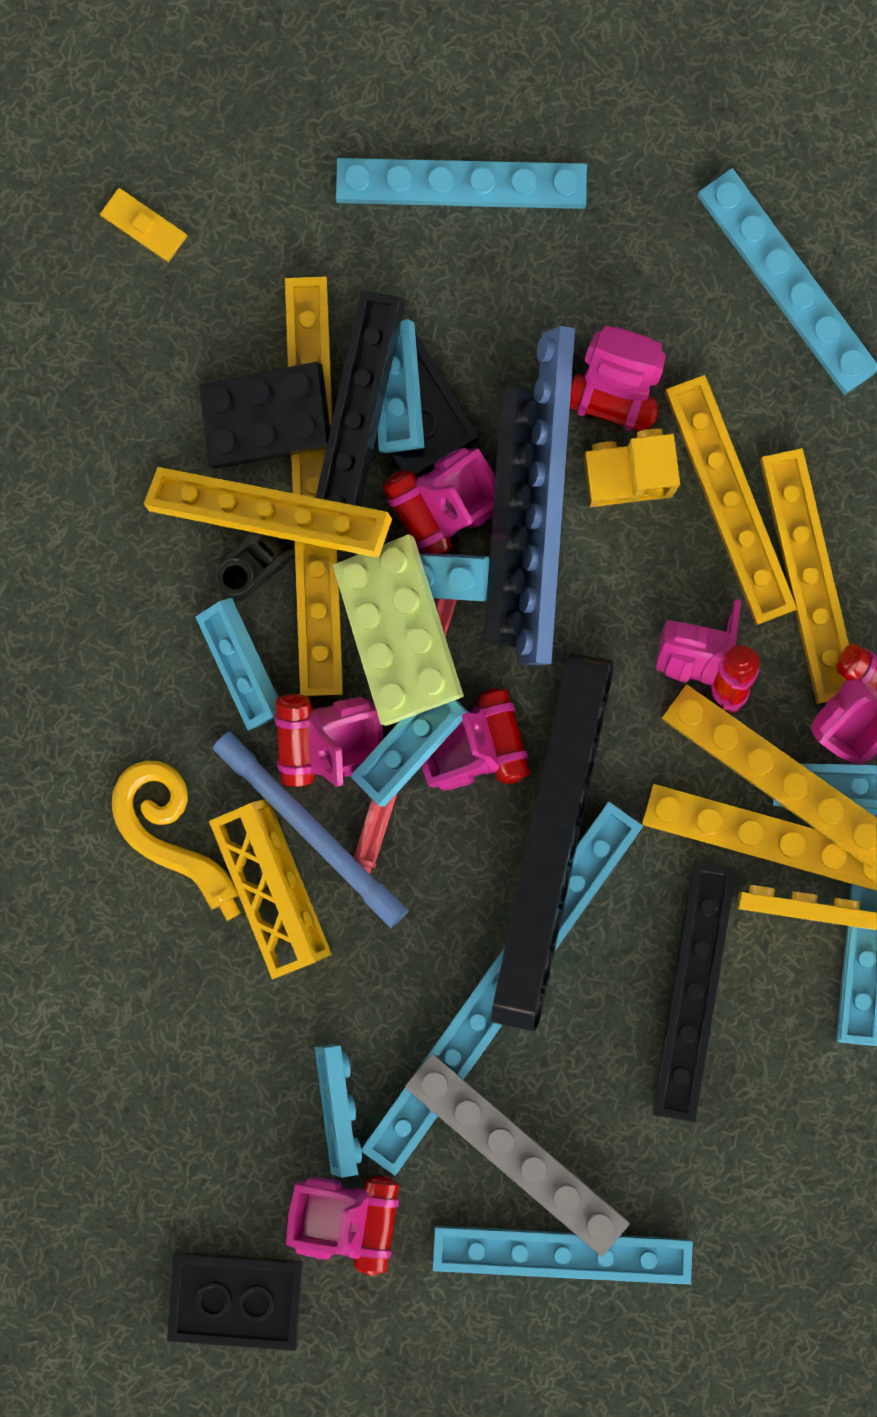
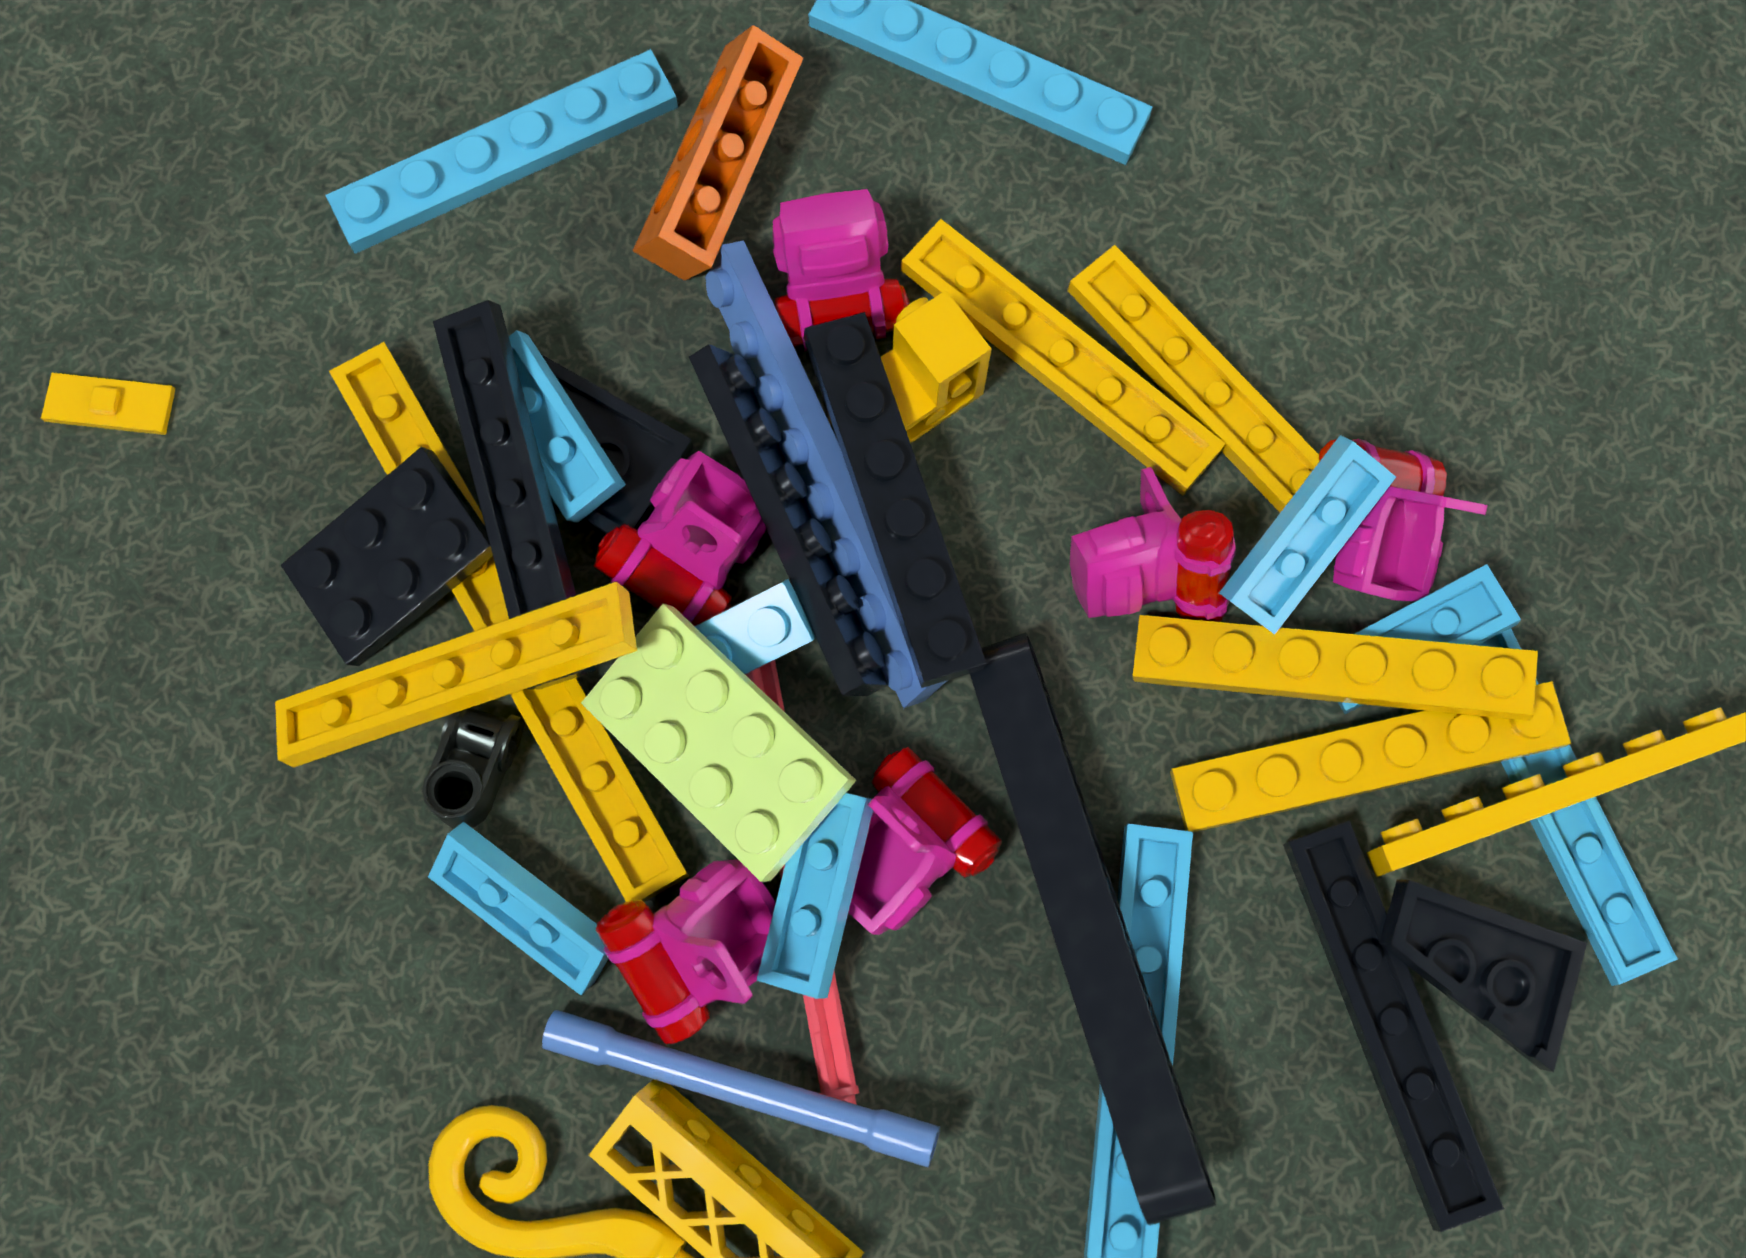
camera: 30 degrees left, 10 degrees down
(576, 539) = (894, 500): none -> black plate
(590, 261) = (718, 154): none -> orange brick
(768, 990) = (1490, 964): none -> black wing
(803, 693) = (1308, 534): none -> medium azure plate

